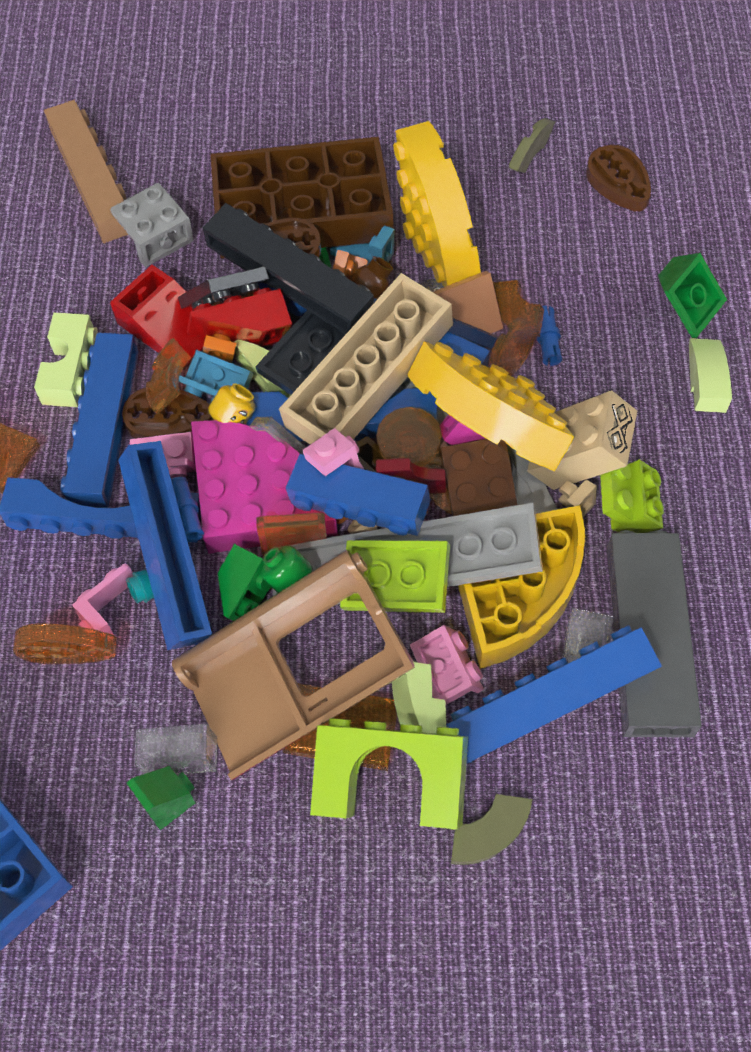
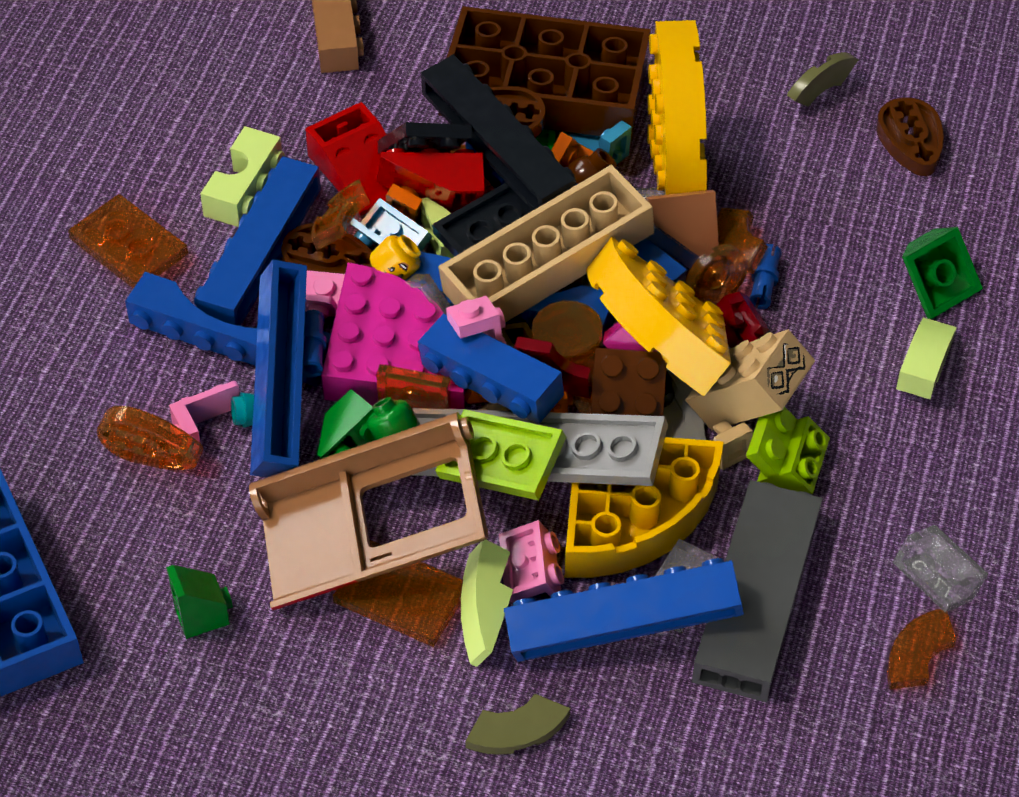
camera: 15 degrees right, 10 degrees down
(154, 223) = (380, 64): light grey bracket -> none
(180, 747) = (236, 562): clear brick -> none
(438, 756) = (393, 603): lime arch -> none
(549, 382) = (741, 319): none -> dark red rock

